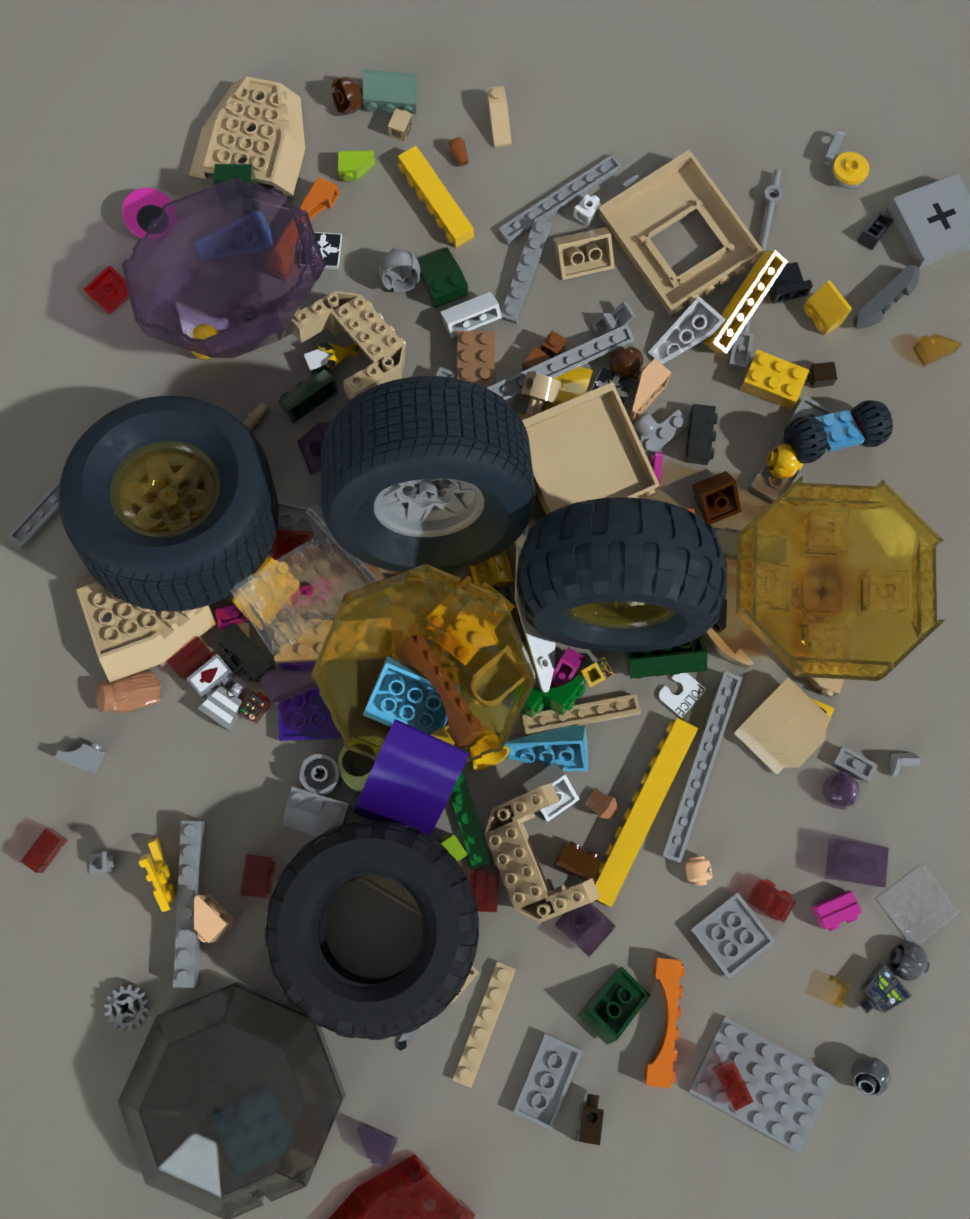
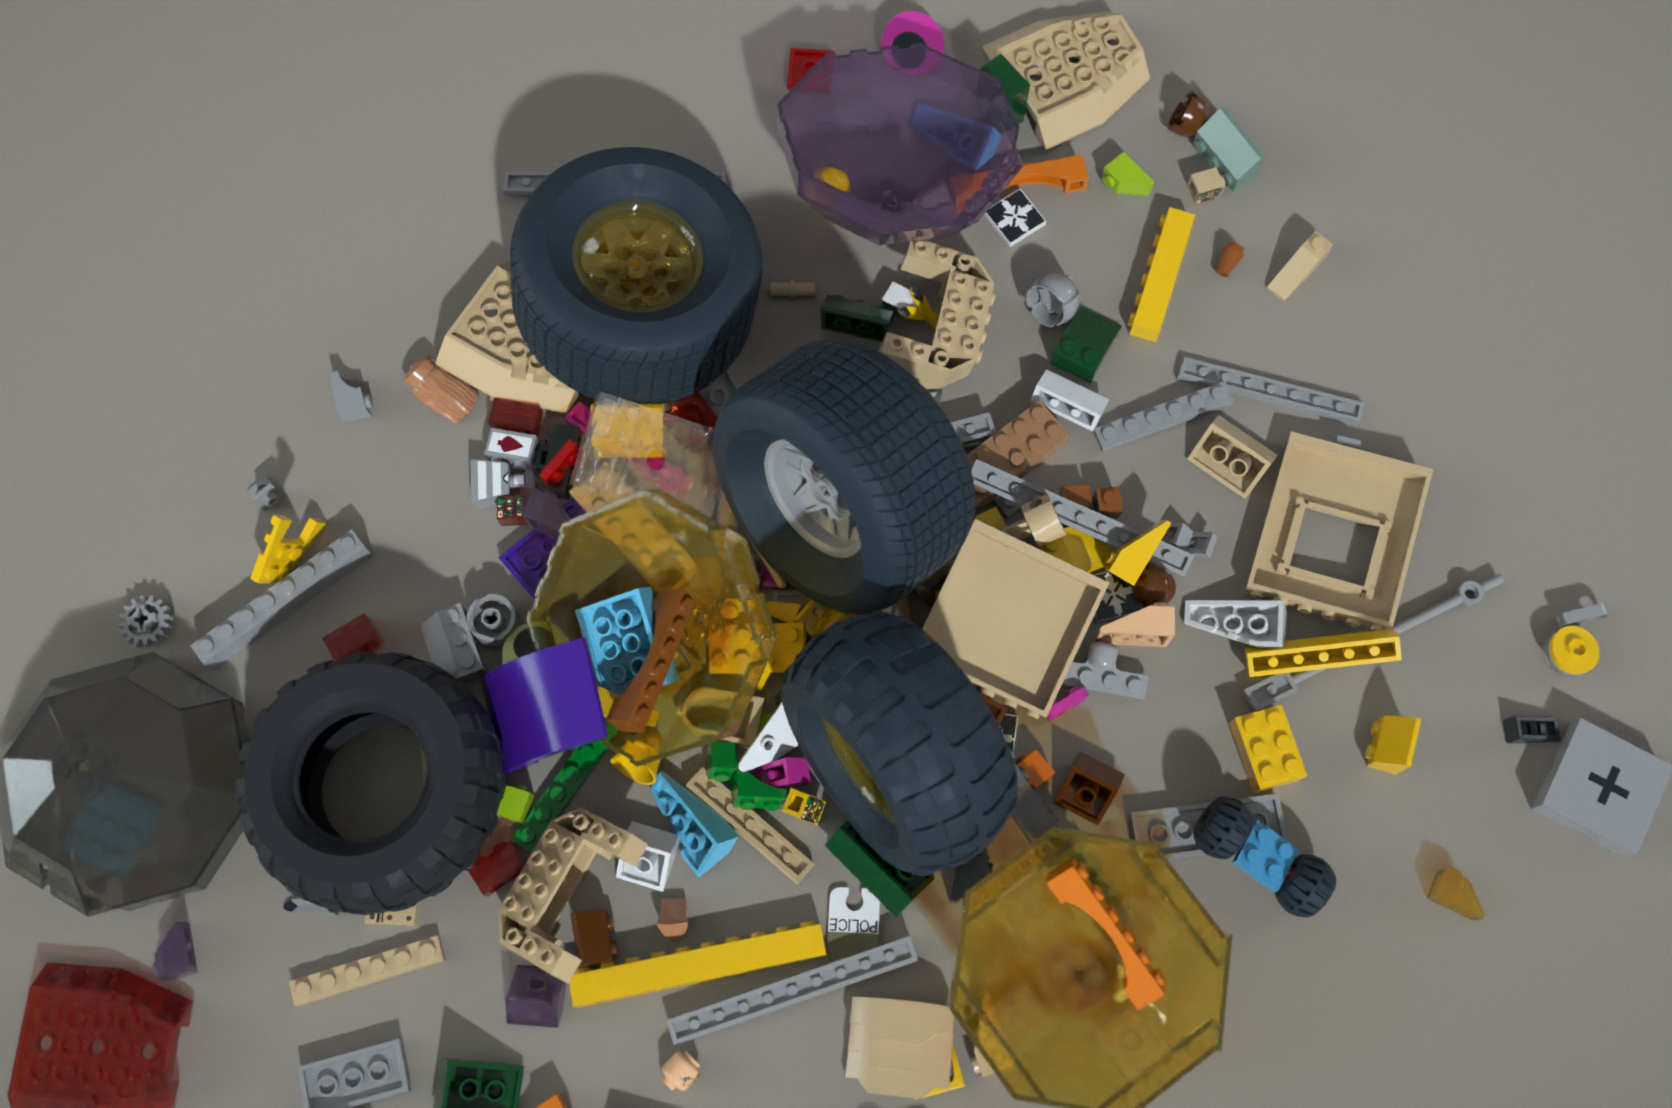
camera: 55 degrees right, 5 degrees down
(44, 850) = (237, 434): clear red brick -> none
(211, 919) = (277, 627): light nougat slope -> none
(254, 660) = (555, 469): none -> red plate
(587, 209) = (1276, 428): white brick -> none
(601, 355) = (1133, 556): none -> yellow slope
(701, 434) = (1143, 720): pearl dark grey brick -> none
(738, 658) = (937, 939): tan slope -> none
(782, 548) = (1072, 885): none -> orange arch
(783, 462) = (1182, 824): yellow plant -> none
(789, 284) = (1386, 683): black bracket -> none
(822, 374) = (1317, 795): dark brown brick -> none
(901, 285) = (1497, 803): dark grey brick -> none

